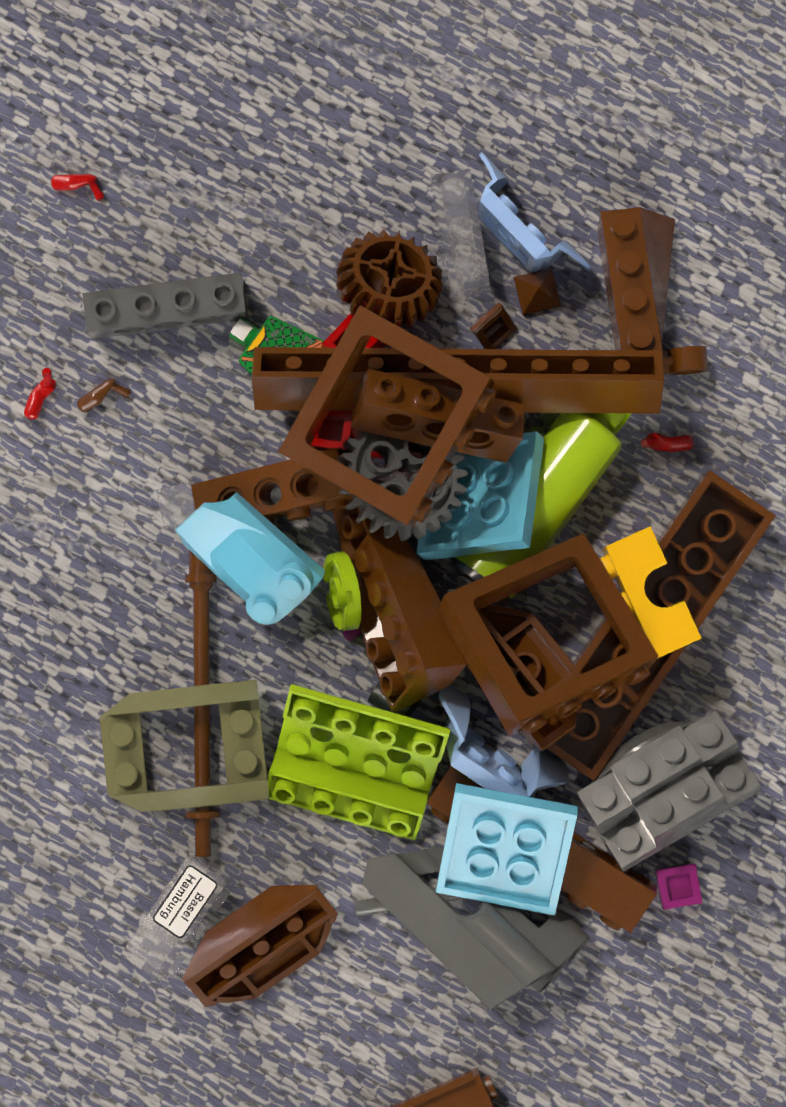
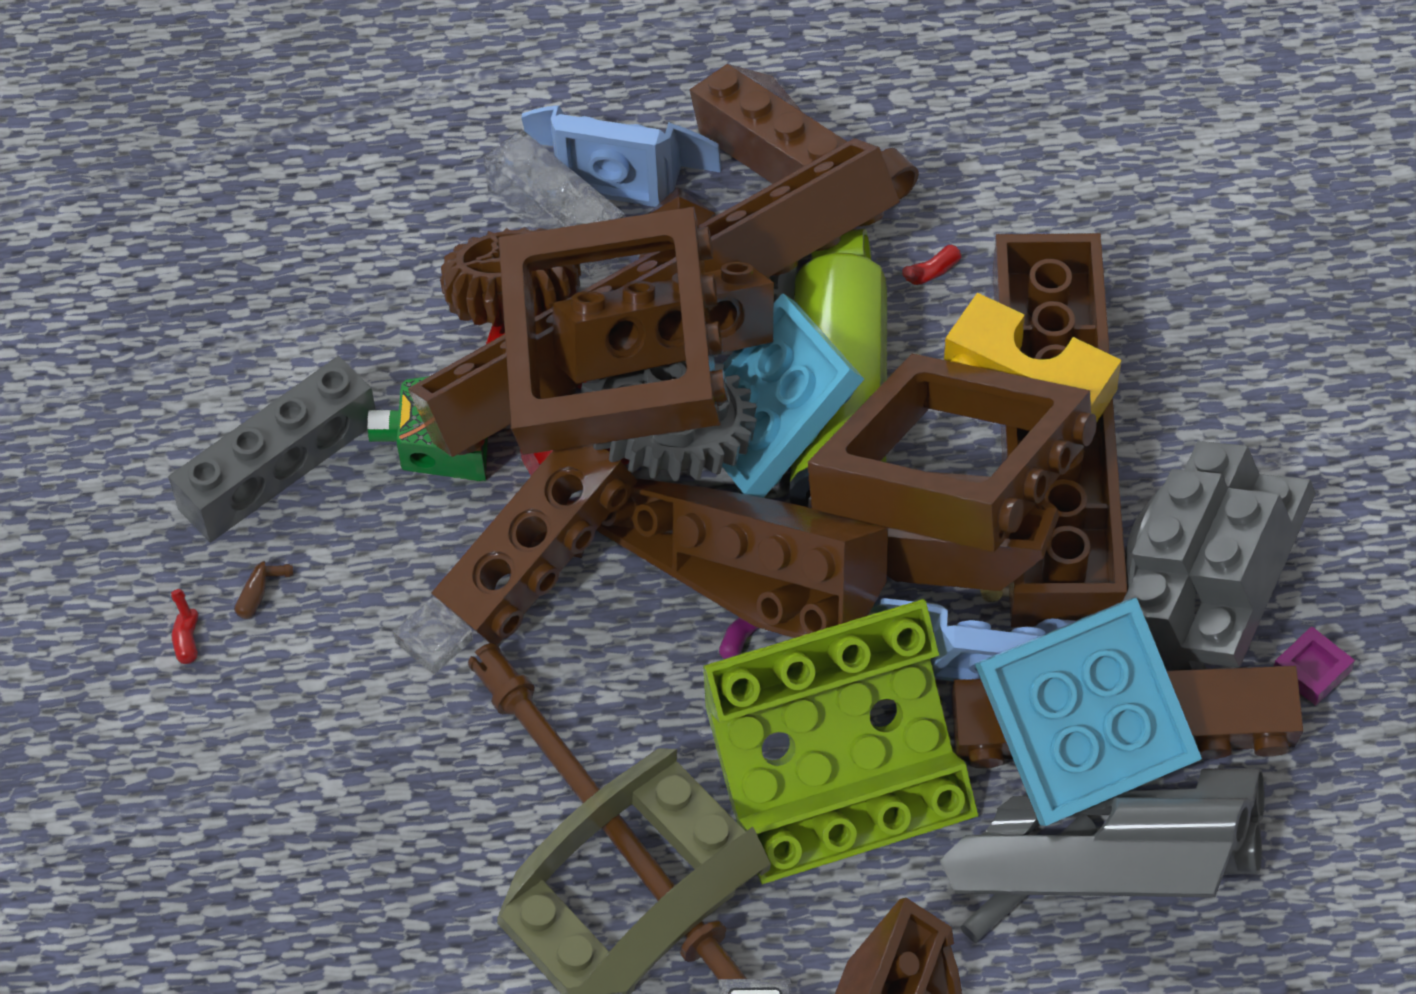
camera: 30 degrees left, 30 degrees down
(76, 181) = (83, 402): red piece -> none
(251, 557) = (552, 616): medium azure slope -> none
(344, 594) = (690, 590): lime tile -> none

